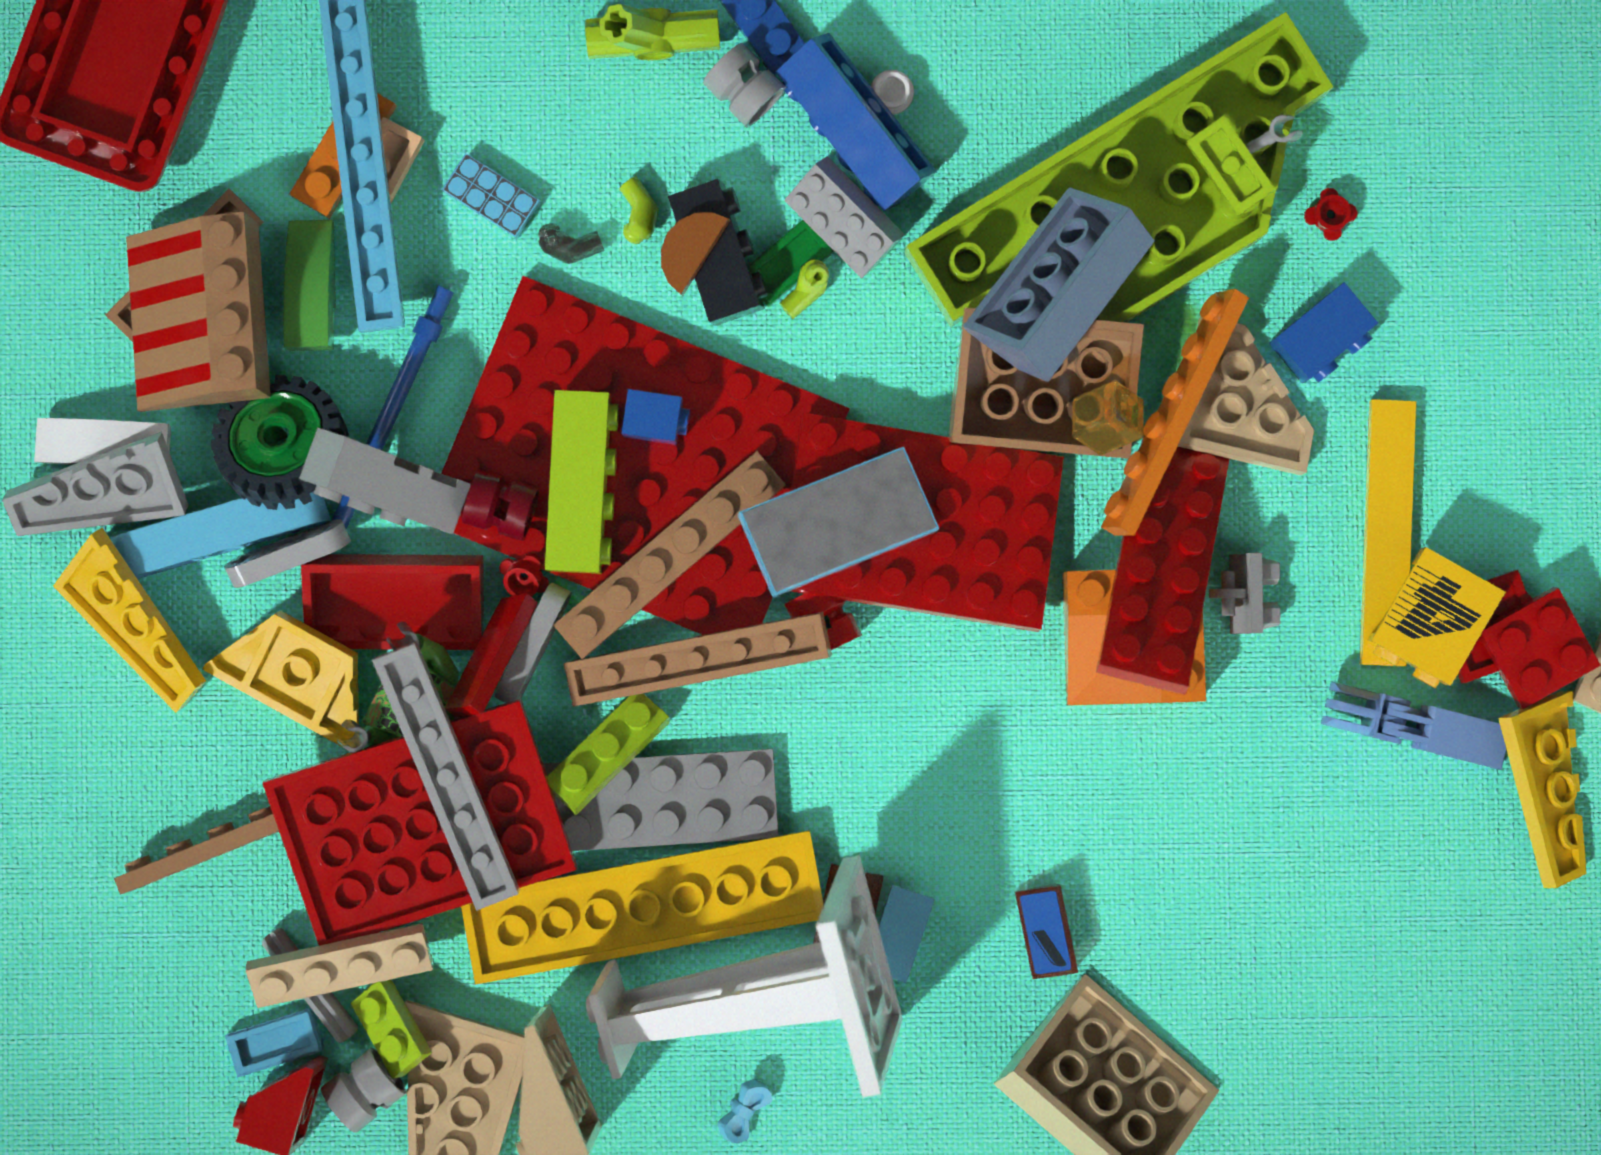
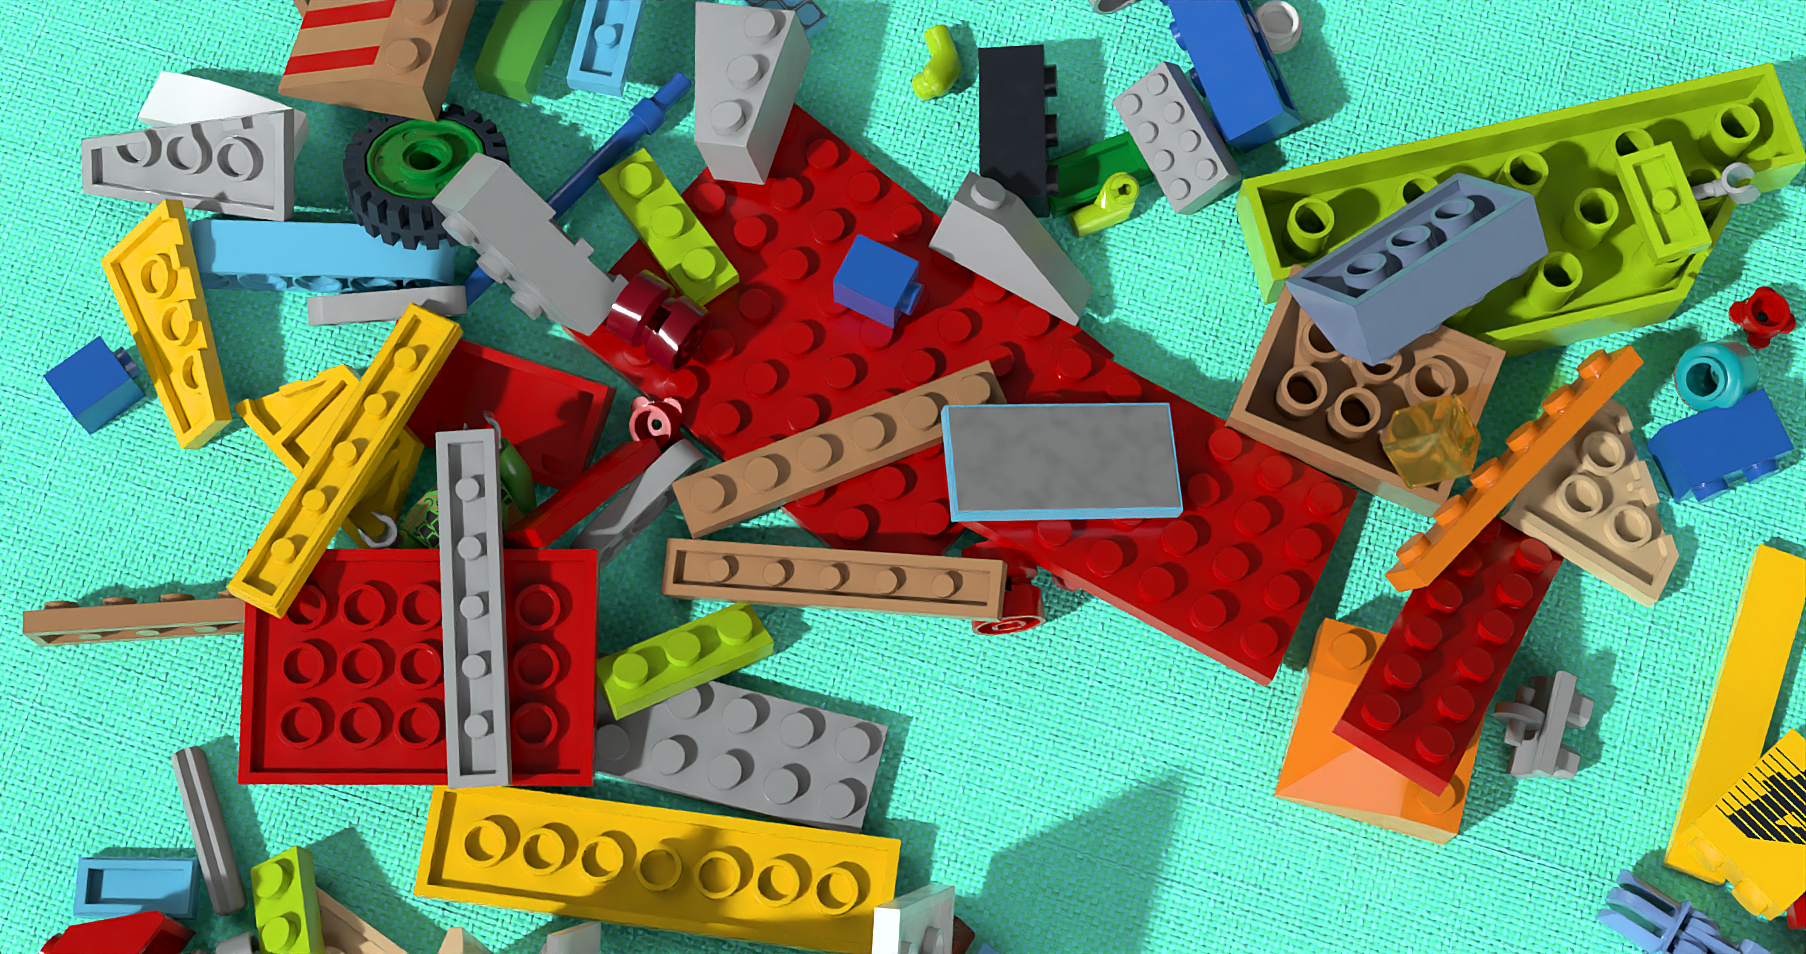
camera: 15 degrees right, 15 degrees down
(92, 685) = (96, 384): none -> blue brick
(308, 691) = (345, 460): none -> yellow tile
(339, 965) = (253, 810): tan plate -> none
(478, 422) = (668, 228): none -> lime plate
(497, 289) = (745, 85): none -> light grey wedge
(566, 248) = (841, 79): clear smoke arm -> none
(579, 482) = (762, 328): lime brick -> none
(689, 246) = (986, 105): dark orange tile -> none
(743, 353) = (1007, 244): none -> light grey slope
(1306, 280) = (1715, 375): none -> teal head

